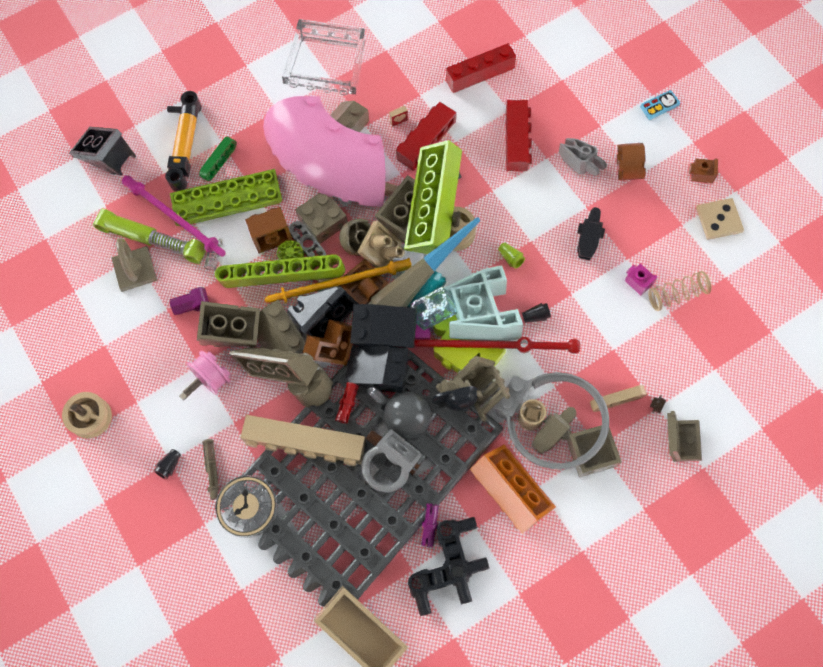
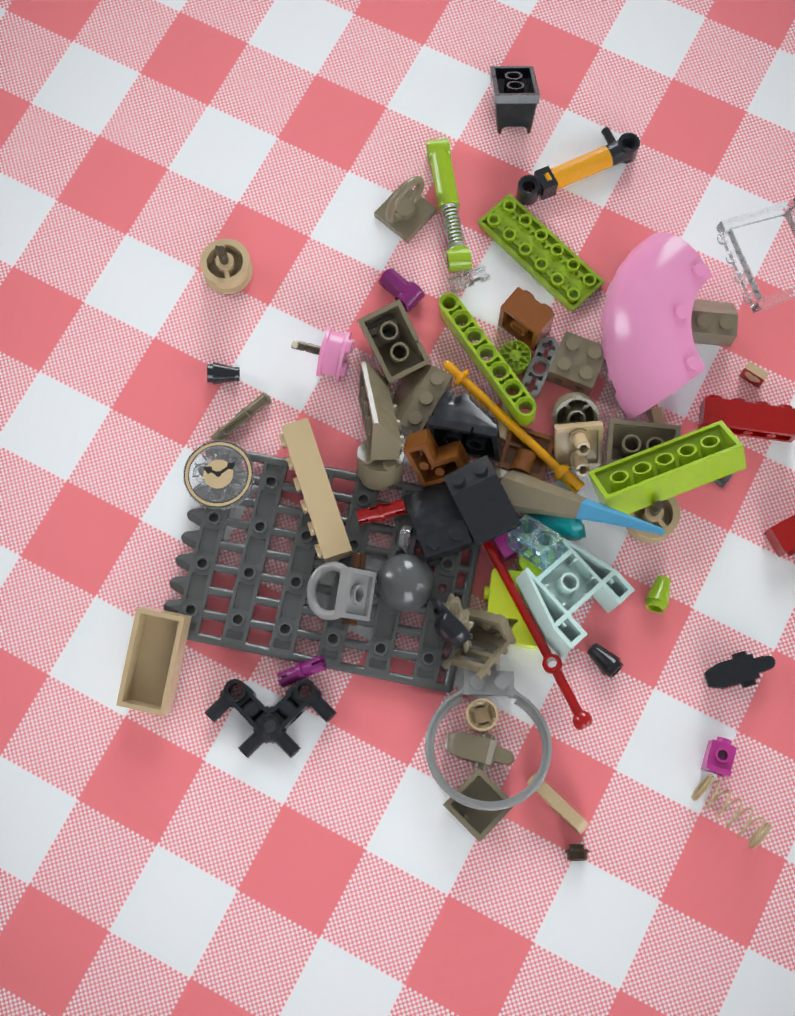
camera: 60 degrees right, 5 degrees up
(138, 188) = (494, 159): dark pink bar -> none
(217, 158) = (579, 216): green beam -> none
(512, 488) = (390, 737): orange slope -> none
(684, 439) = (550, 900): dark tan plate -> none

